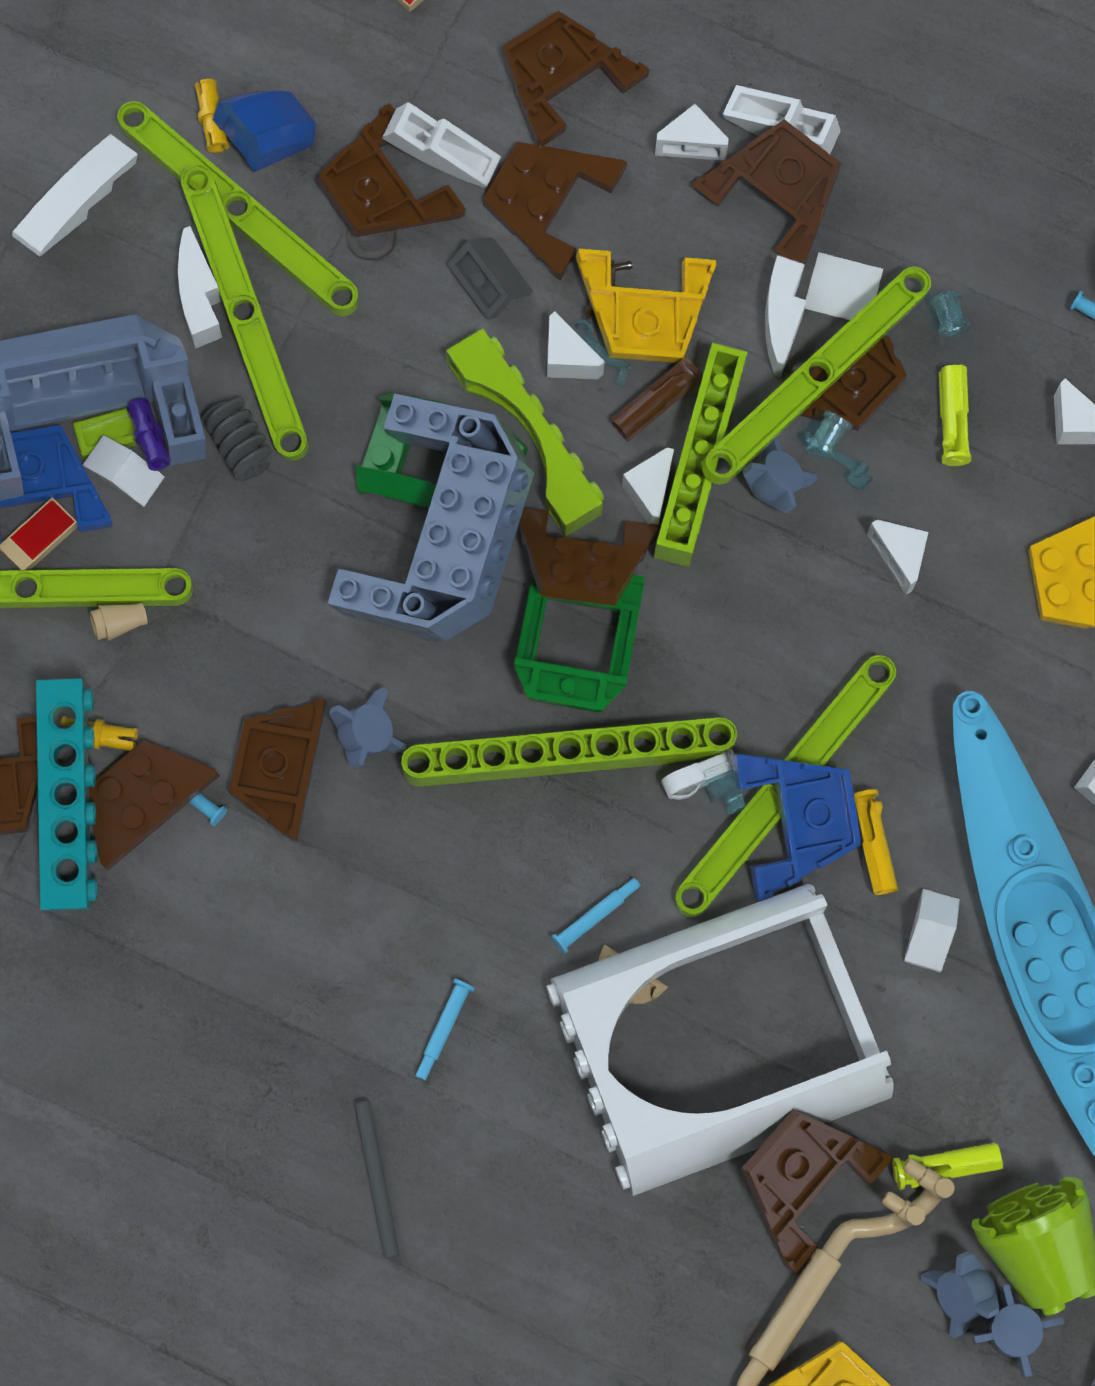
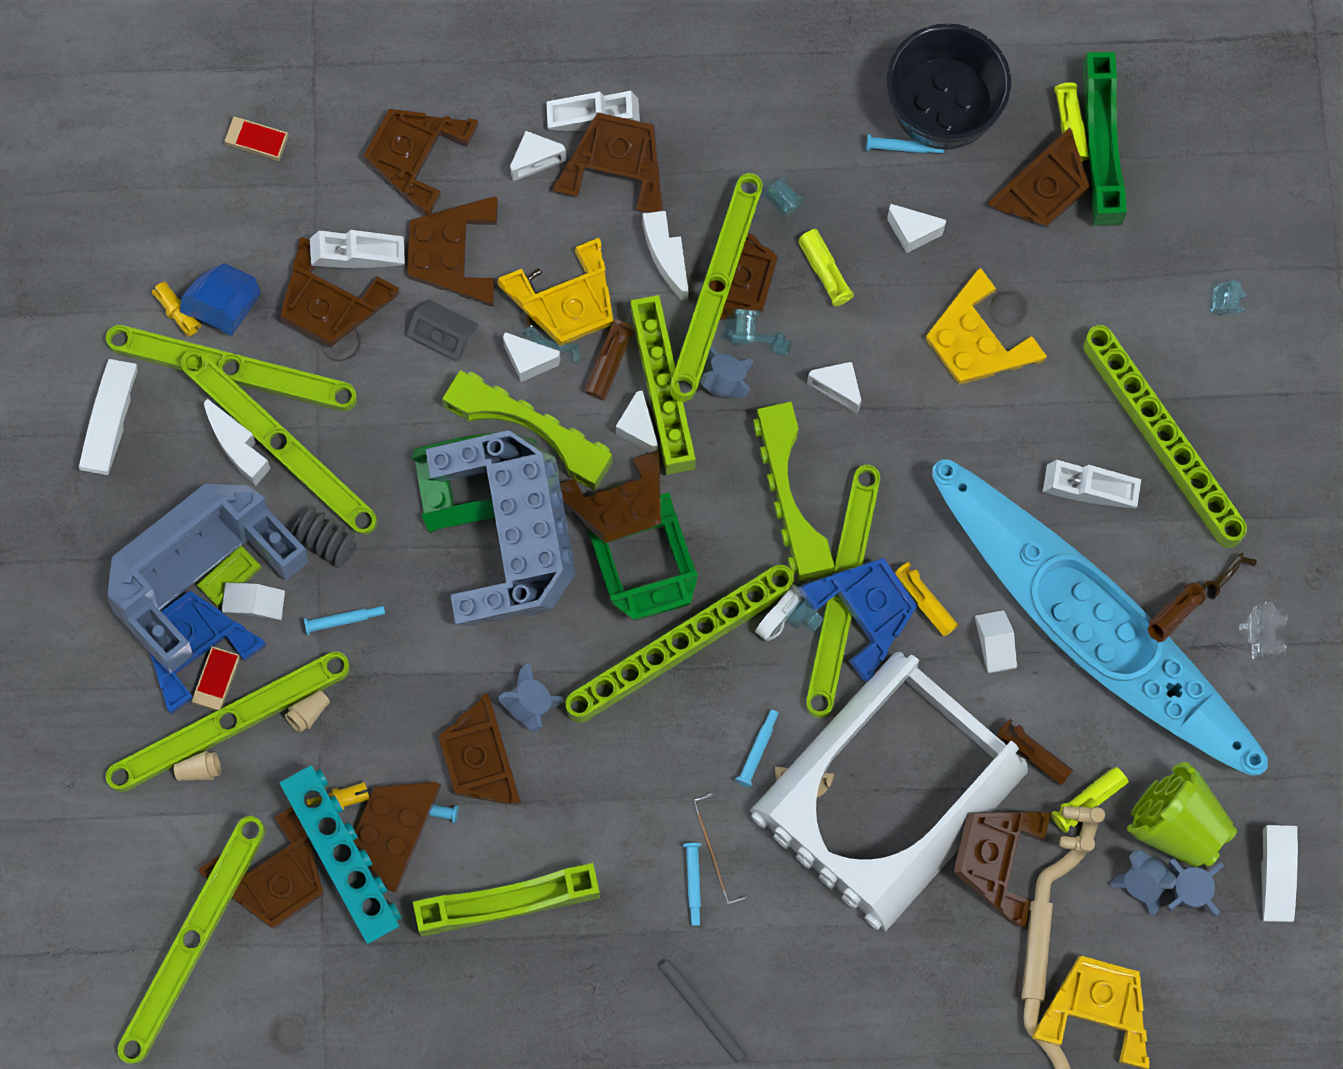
camera: 25 degrees left, 0 degrees up
(148, 434) = (259, 565): dark purple pin -> none
(210, 538) = (342, 619): none -> medium azure piece
(236, 946) = (485, 906): none -> lime arch
(482, 1004) = (711, 851): none -> medium nougat piece
(771, 718) = (808, 548): none -> lime arch
(841, 286) = (698, 213): white sticker -> none
(910, 1078) = (1035, 752): none -> reddish brown piece

